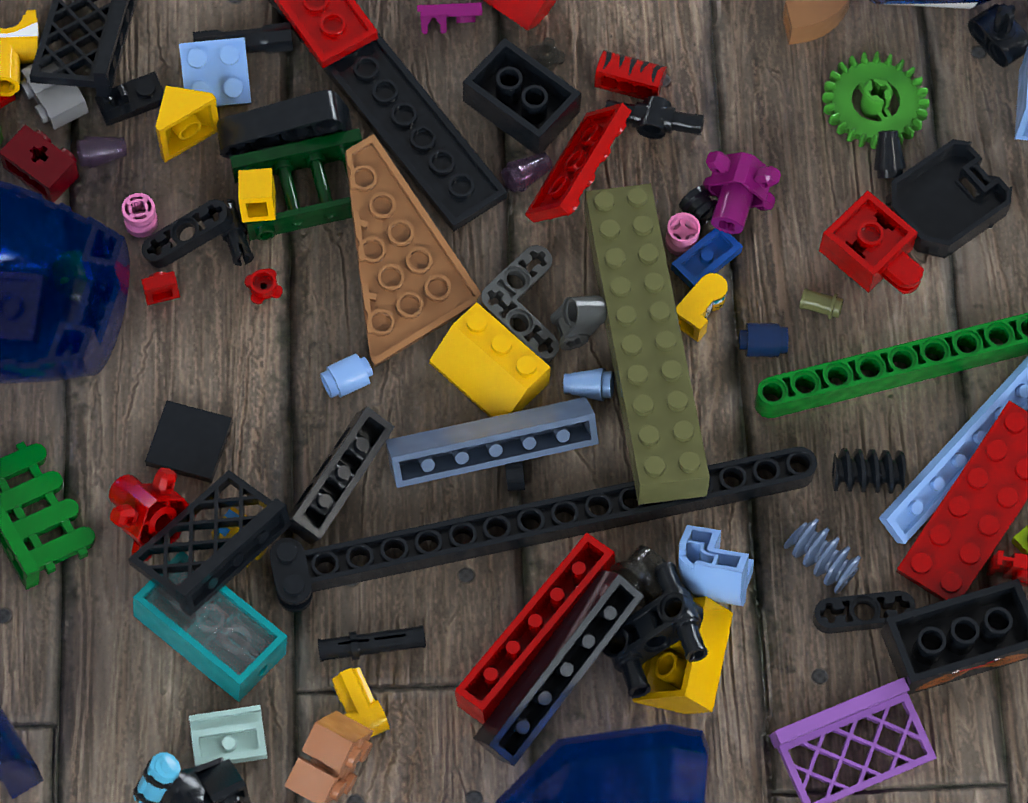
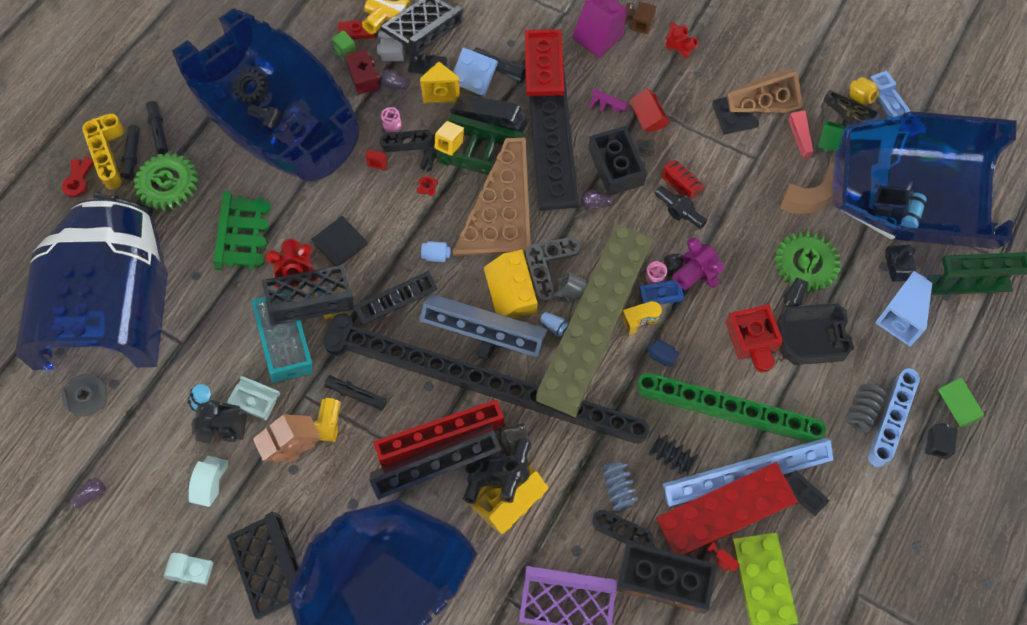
camera: 35 degrees right, 0 degrees up
(578, 163) = (619, 211): red plate -> none
(710, 570) = (549, 457): light blue brick -> none
(821, 303) = (708, 351): olive pin -> none

